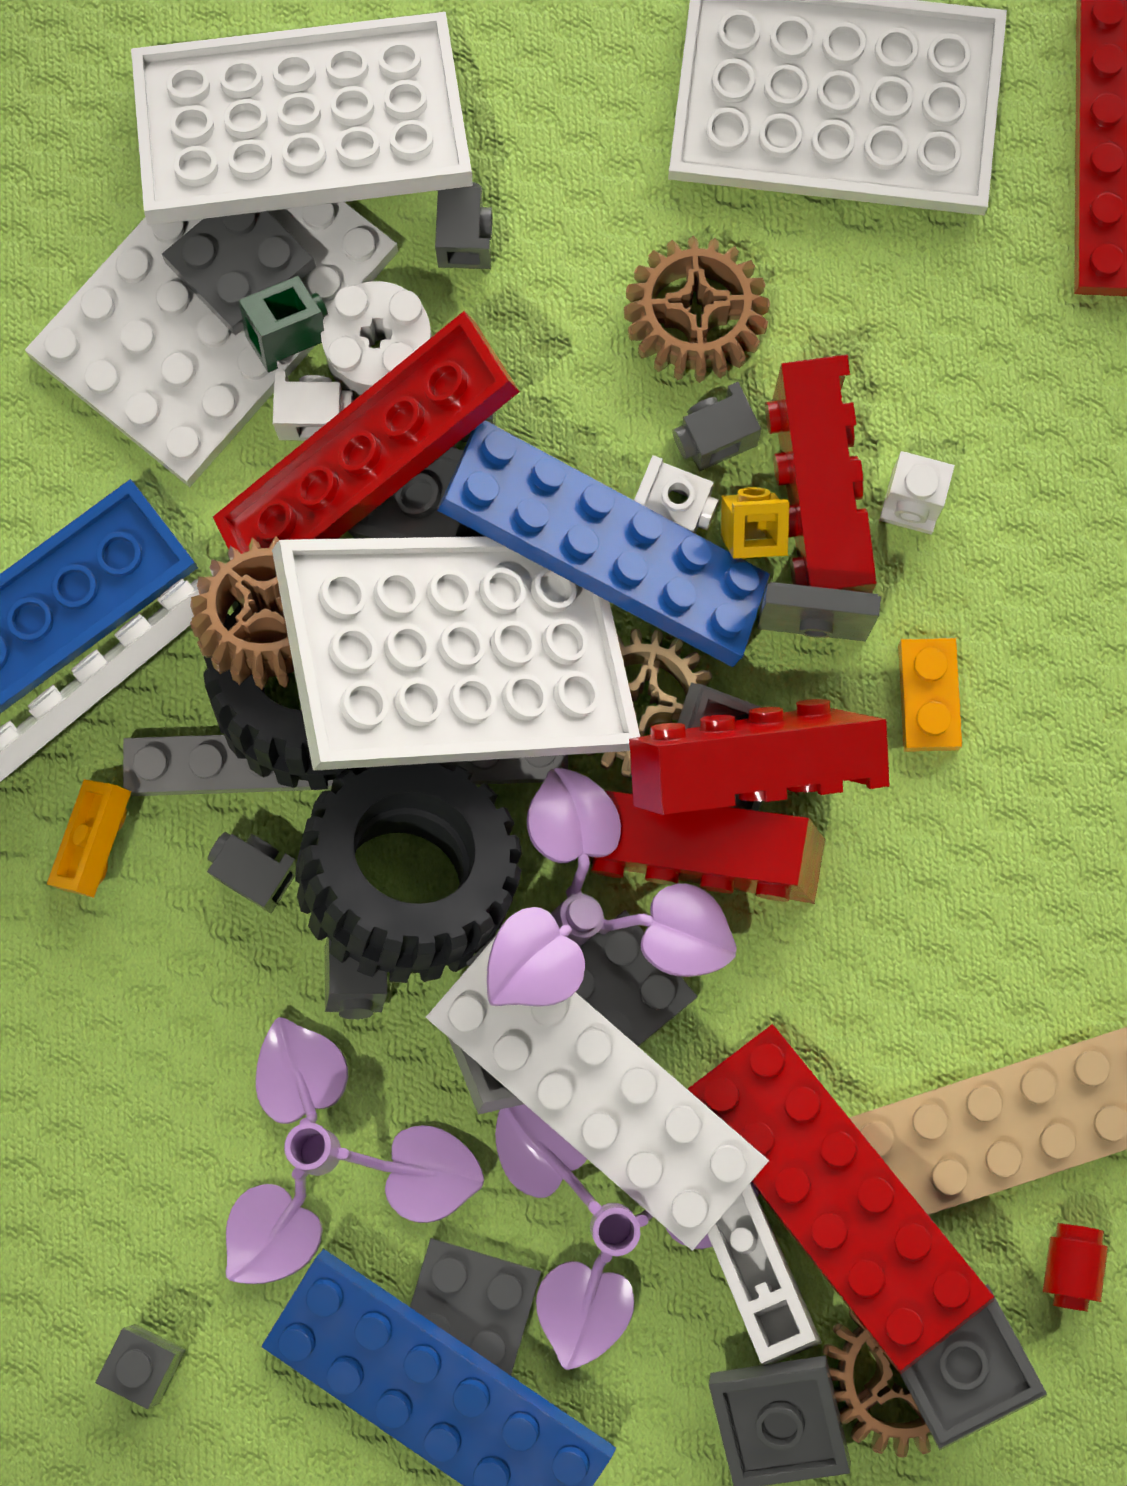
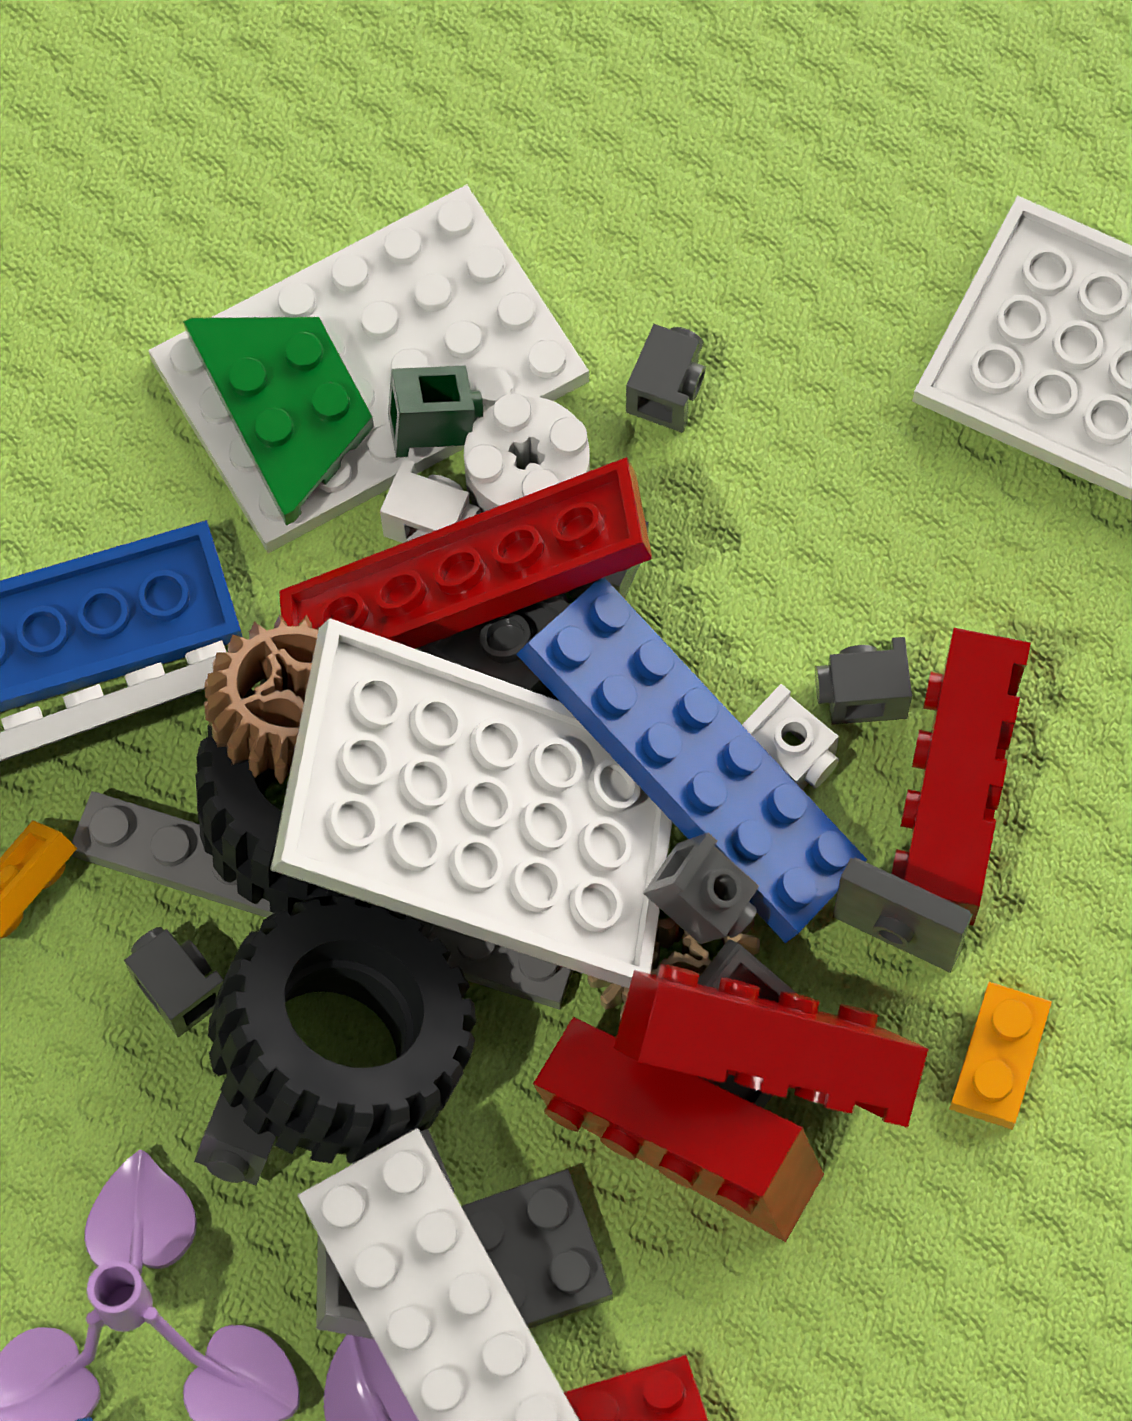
camera: 20 degrees right, 10 degrees down
(155, 353) = (284, 398): none -> green wing
(235, 258) = (409, 323): dark grey plate -> none
(298, 118) = (531, 206): white plate -> none
(539, 953) = (447, 1179): lavender plant -> none
(657, 651) = (688, 887): none -> dark grey brick
(676, 311) = (867, 538): medium nougat gear -> none
(755, 515) = (868, 796): yellow brick -> none
(916, 492) = (1063, 826): white brick -> none

